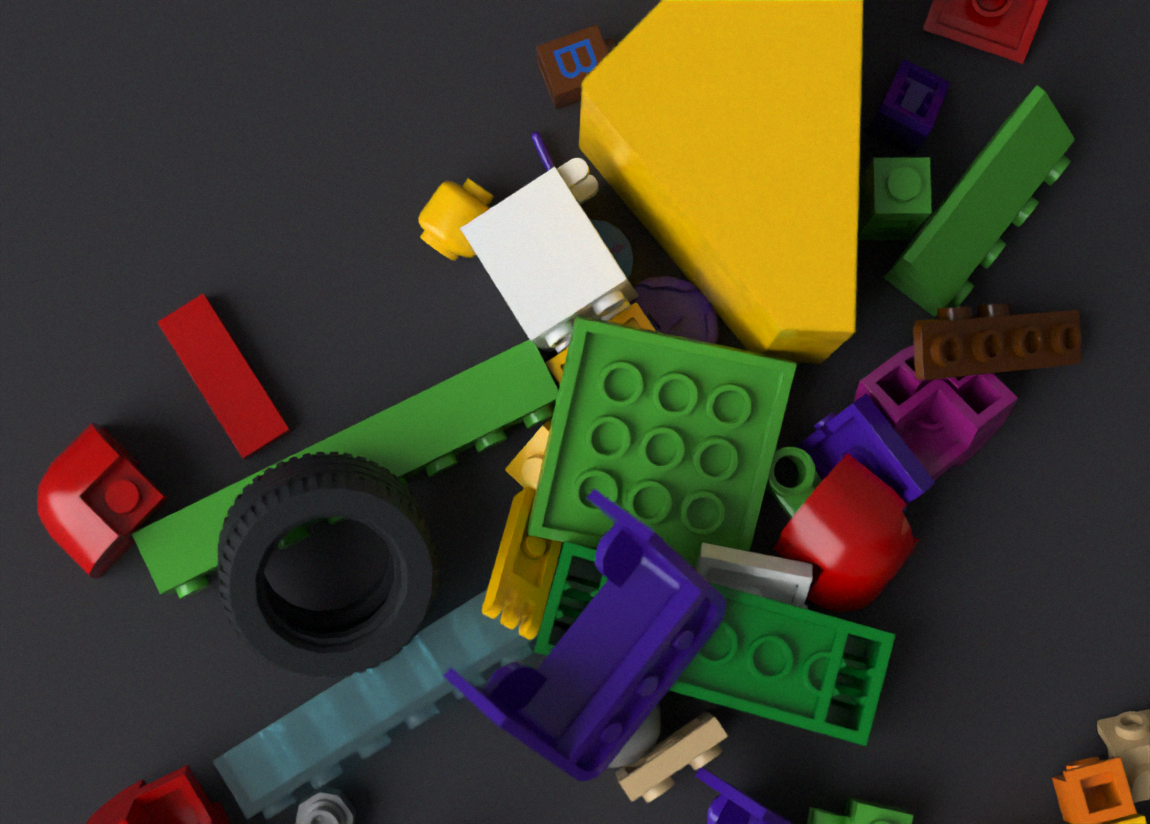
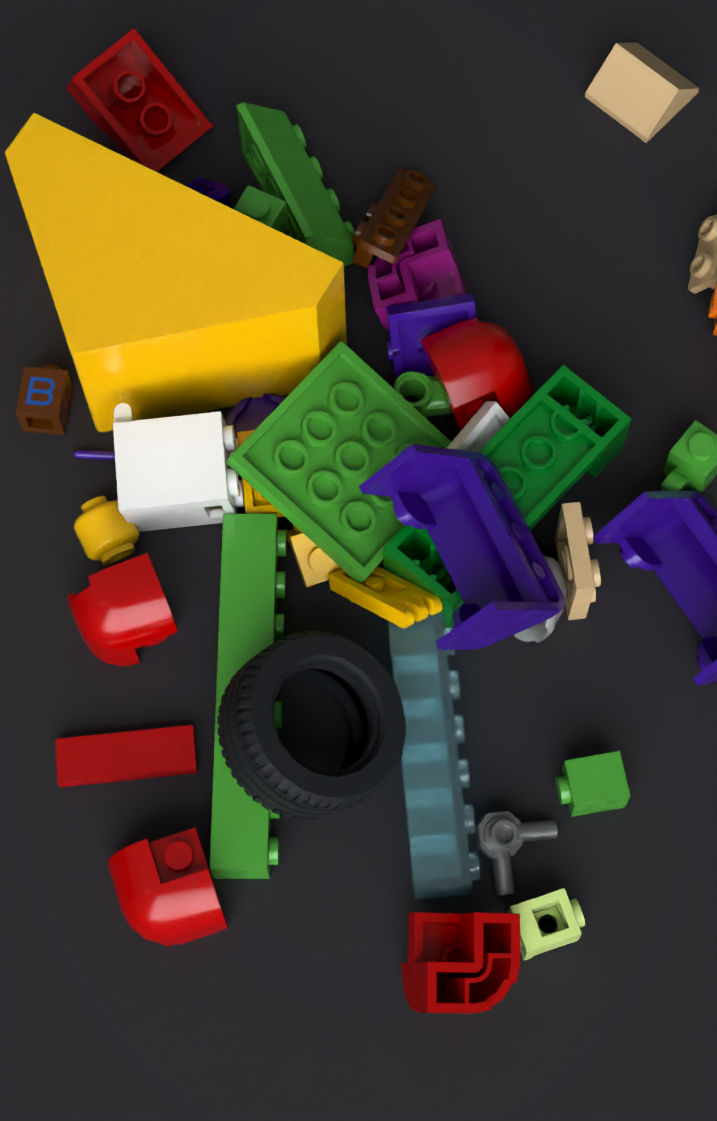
camera: 55 degrees left, 15 degrees down
(365, 293) = (122, 611): none -> red brick

